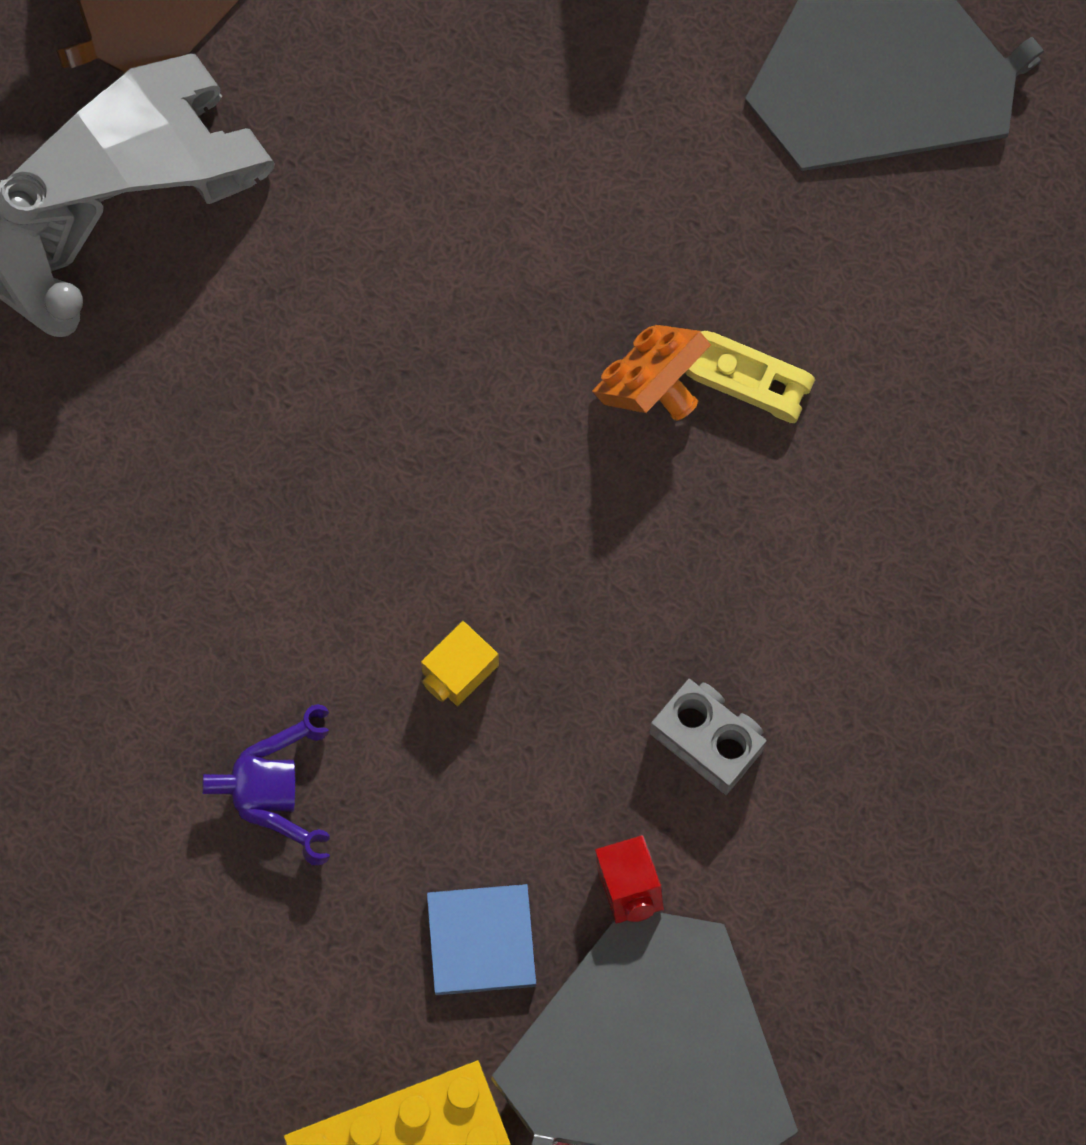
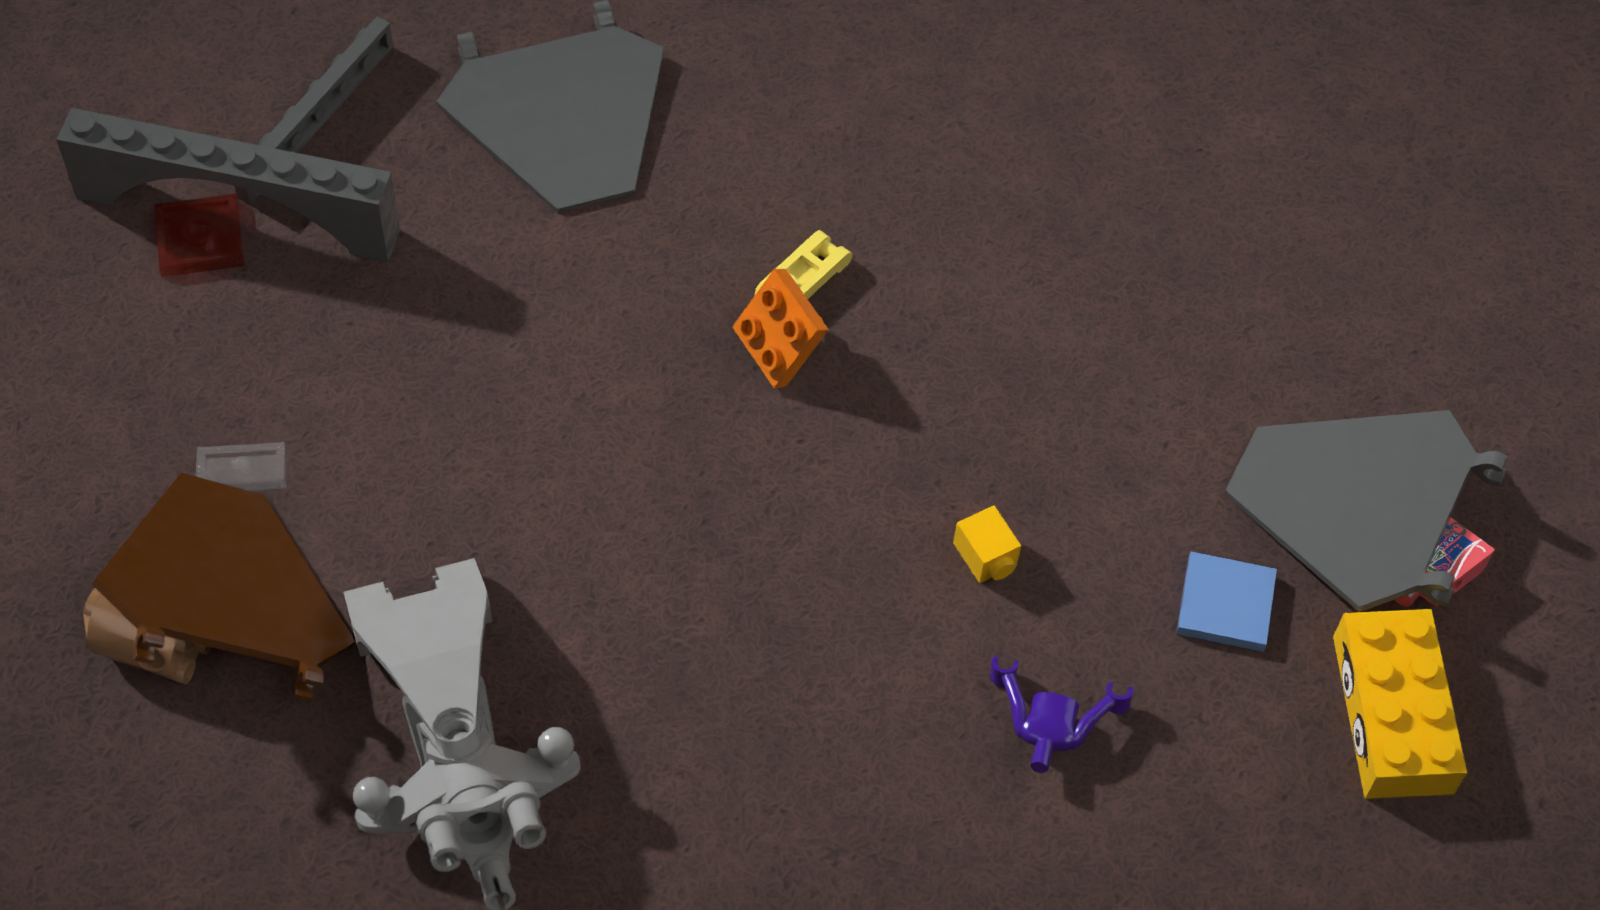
camera: 75 degrees left, 15 degrees down
(629, 880) = (1211, 472): red brick -> none
(699, 744) = (1106, 393): light grey brick -> none

